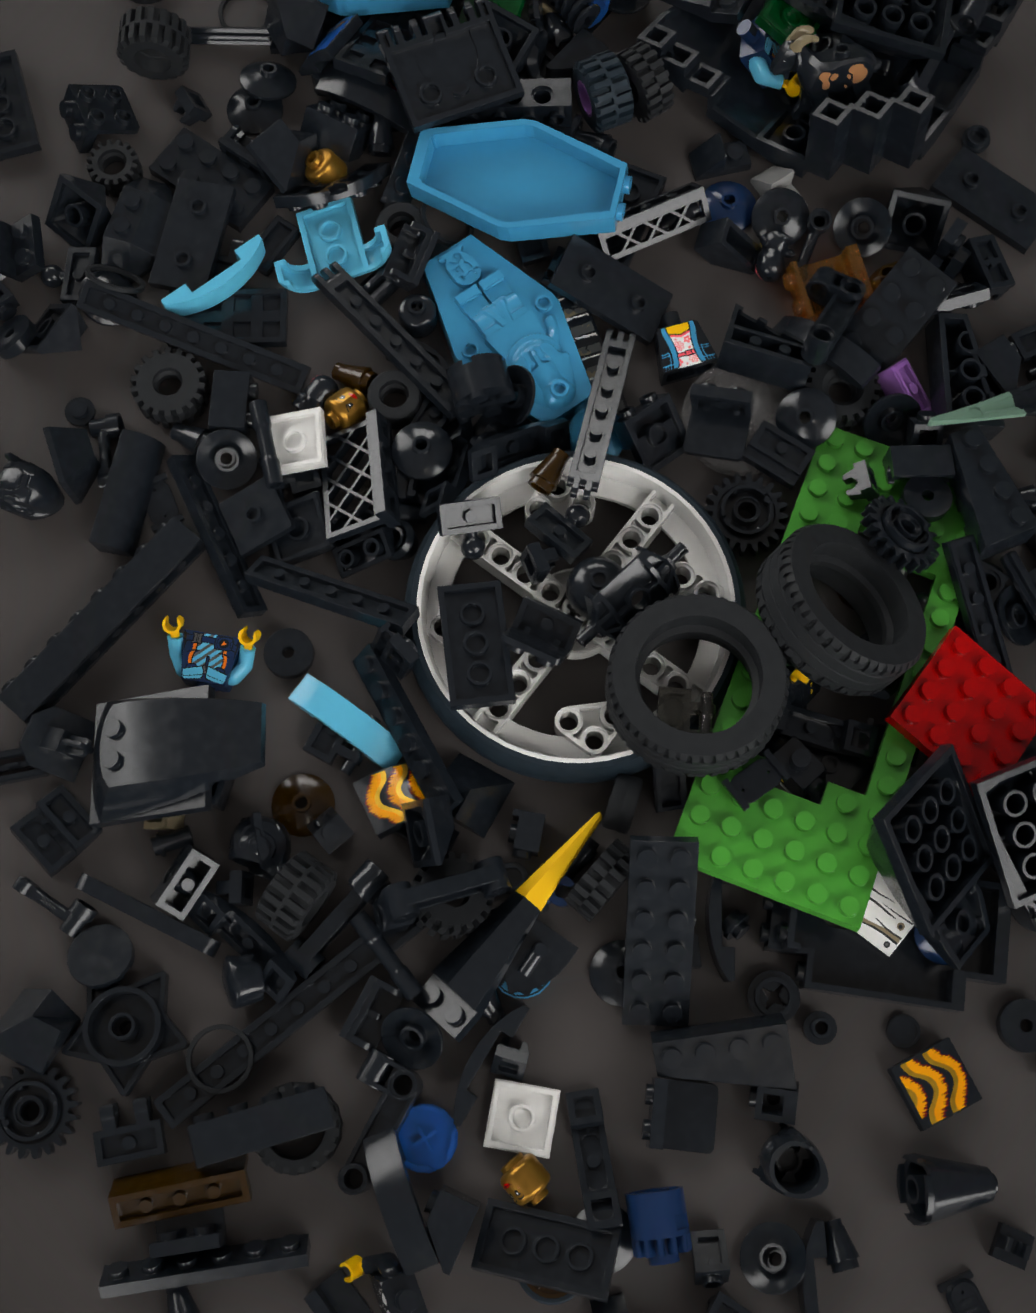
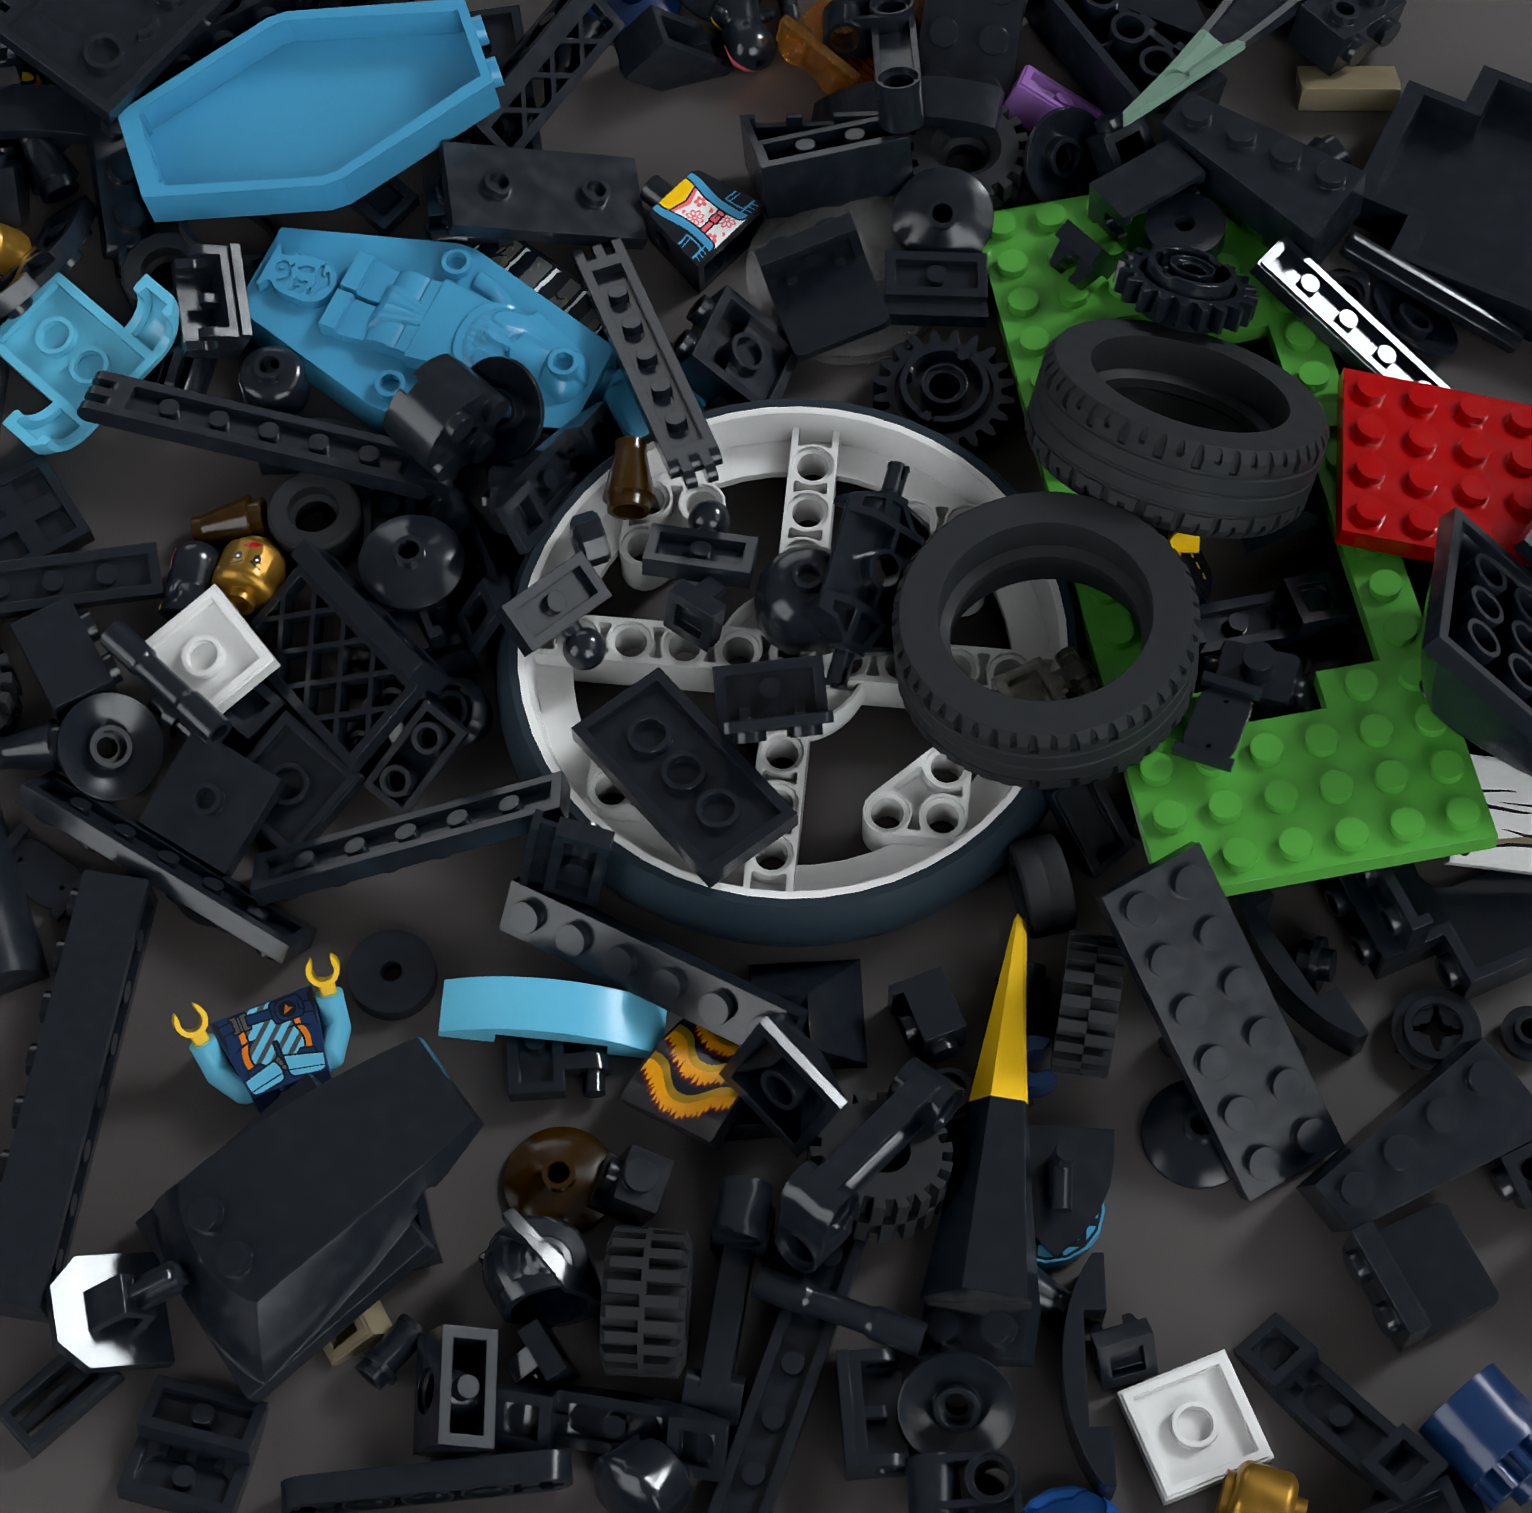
camera: 30 degrees left, 10 degrees down
(509, 492) = (590, 537): none -> black tile

